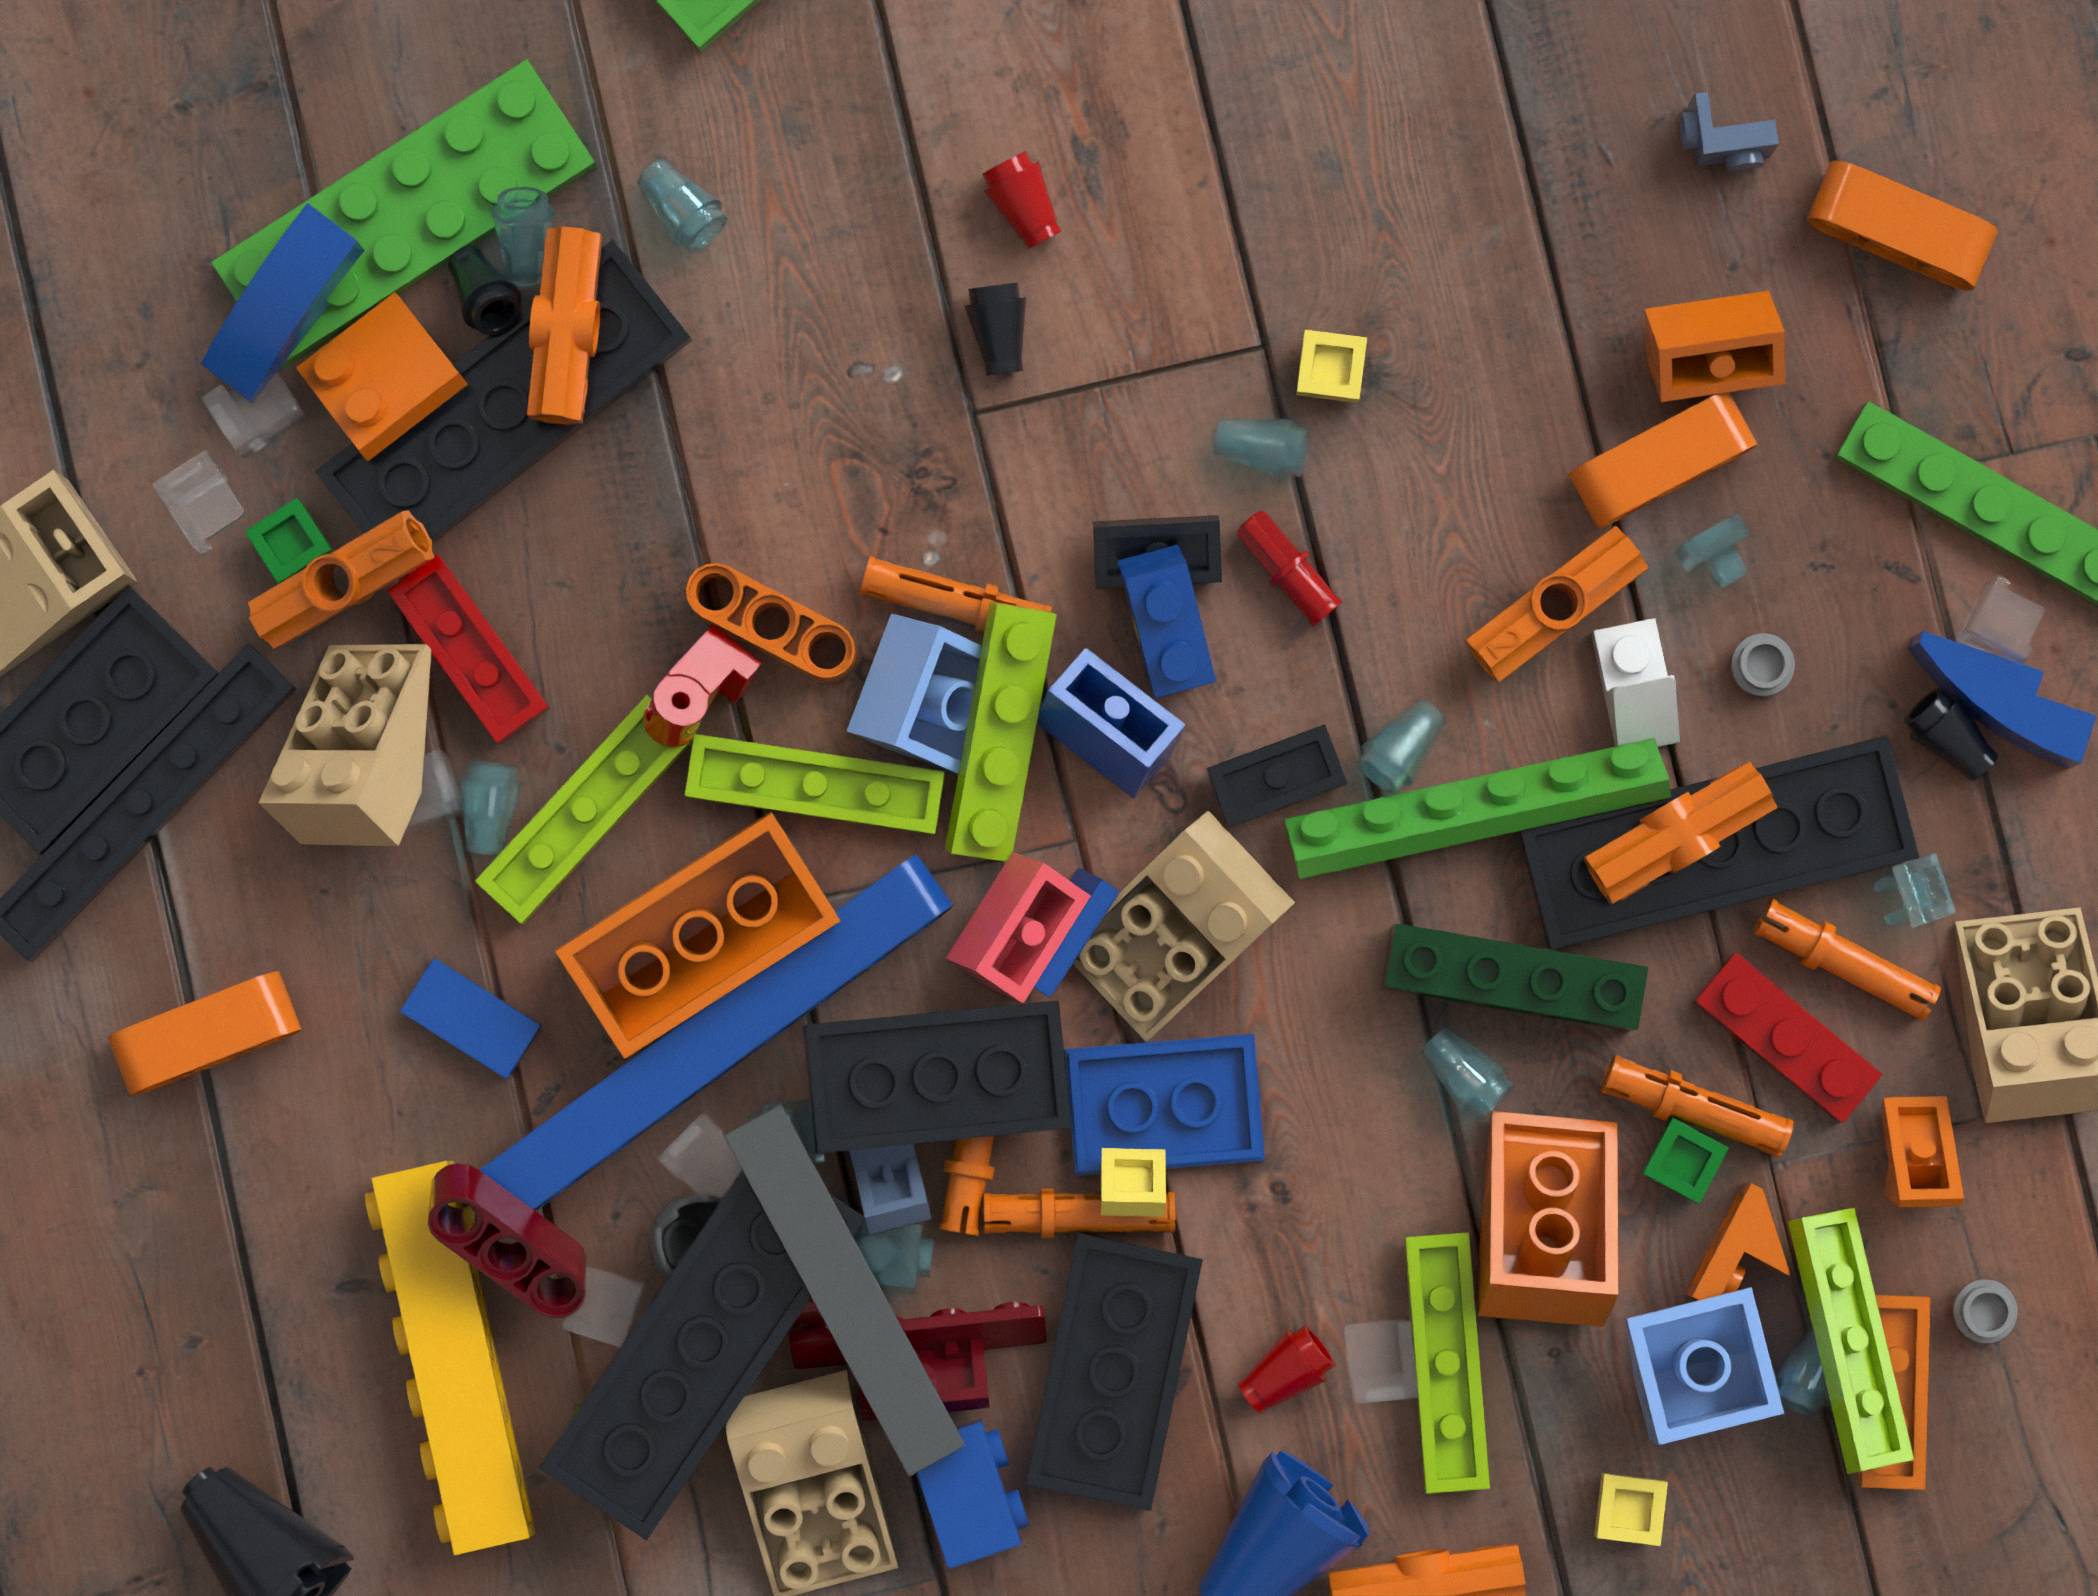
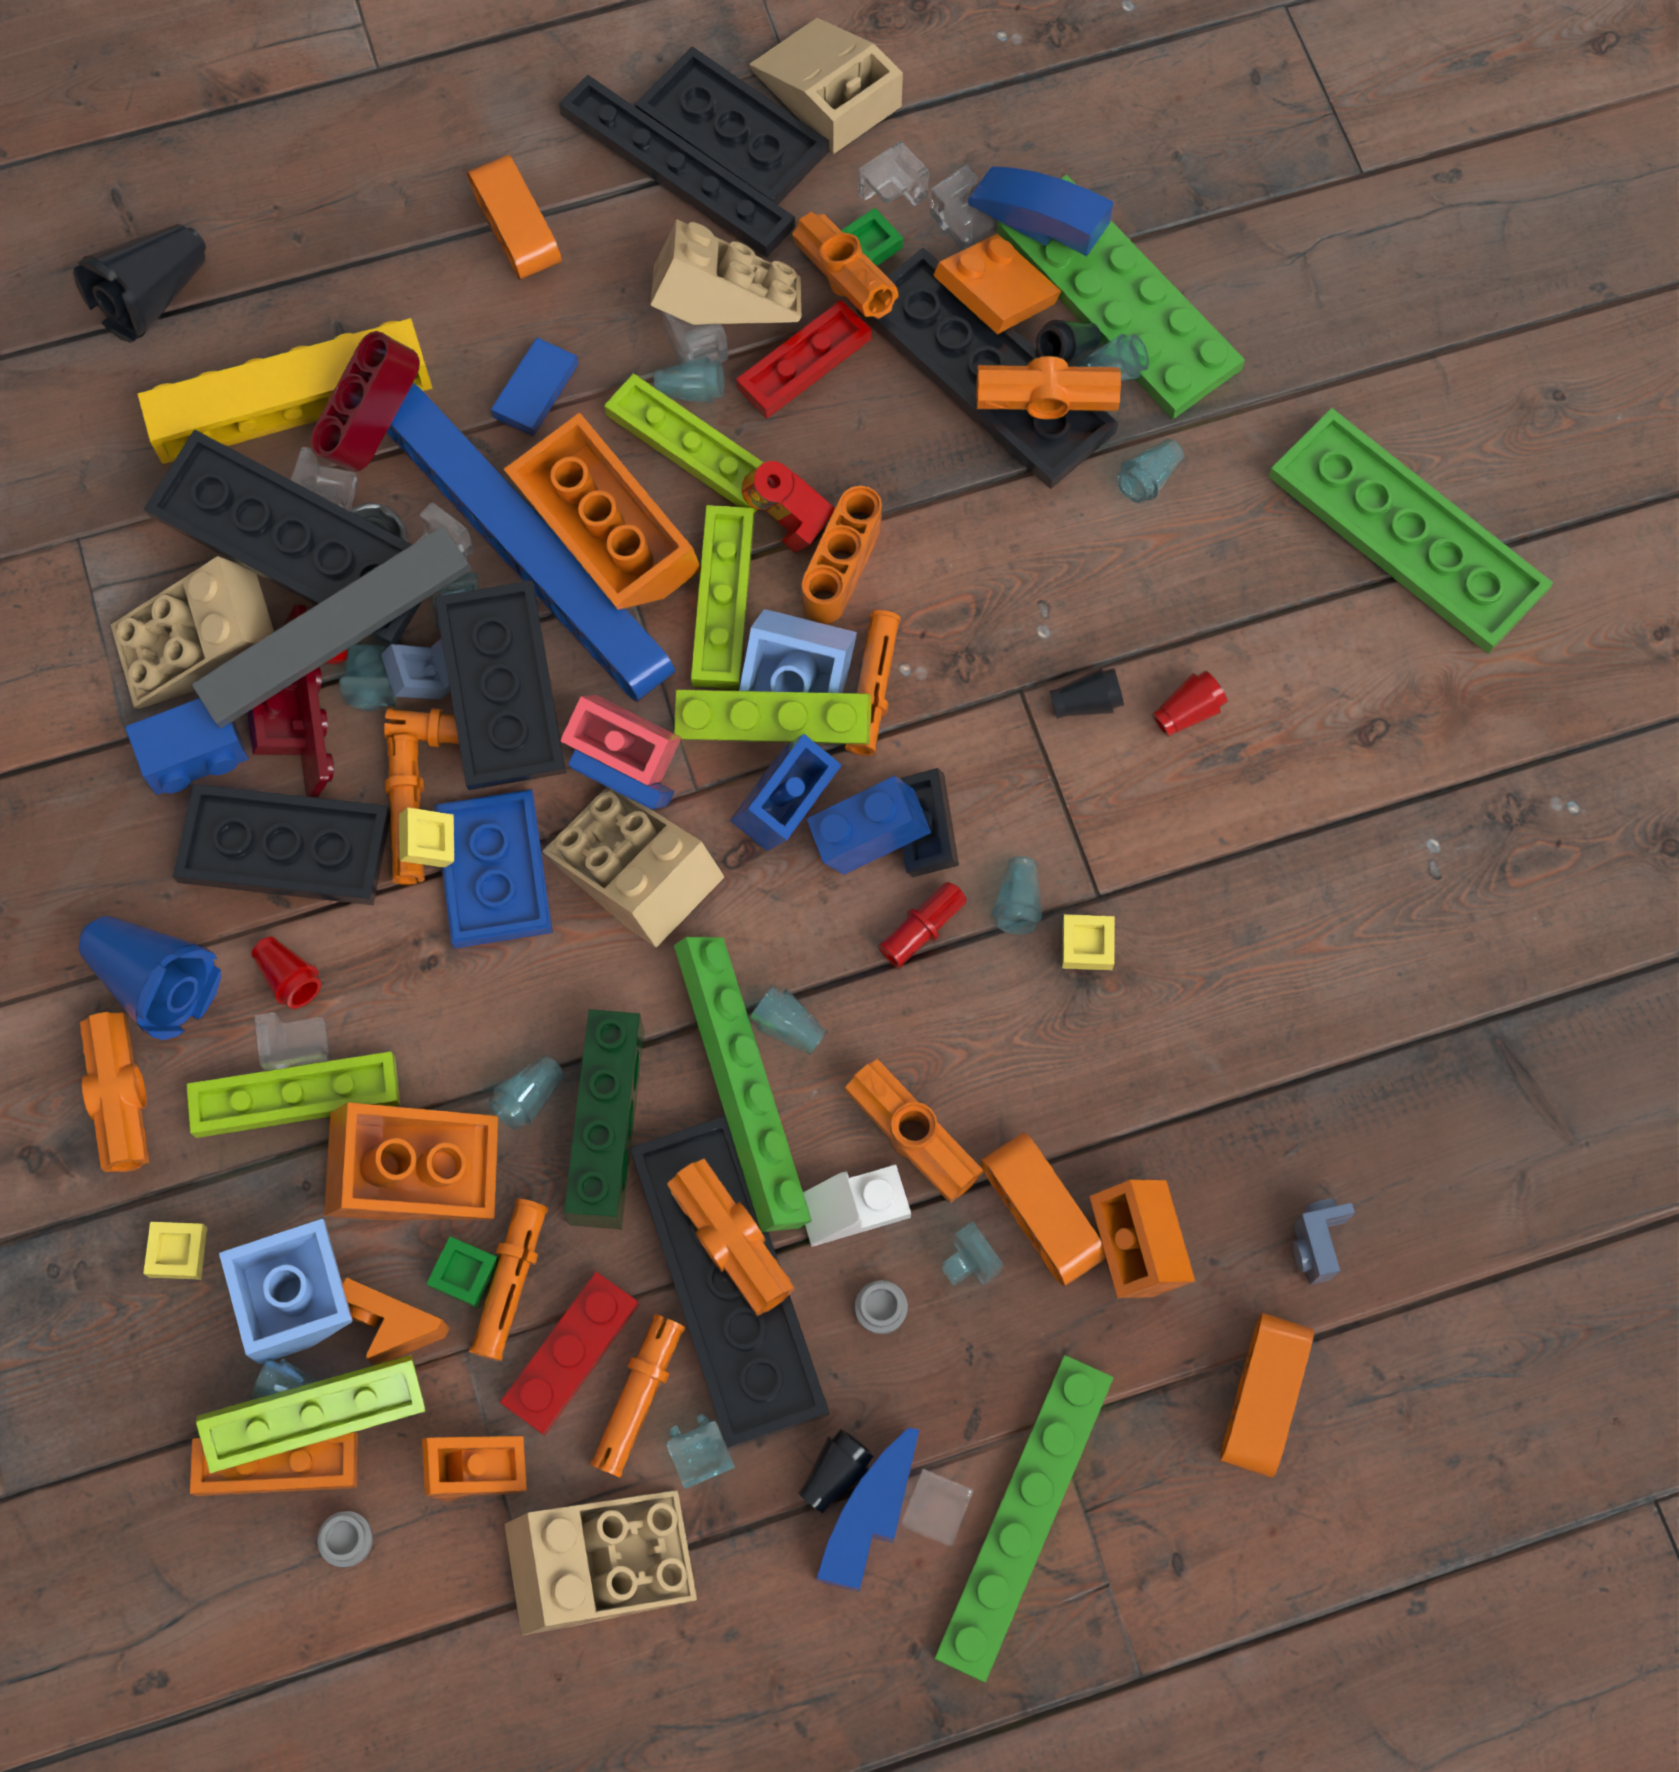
camera: 85 degrees right, 15 degrees down
(1276, 776) = (756, 927): black plate -> none

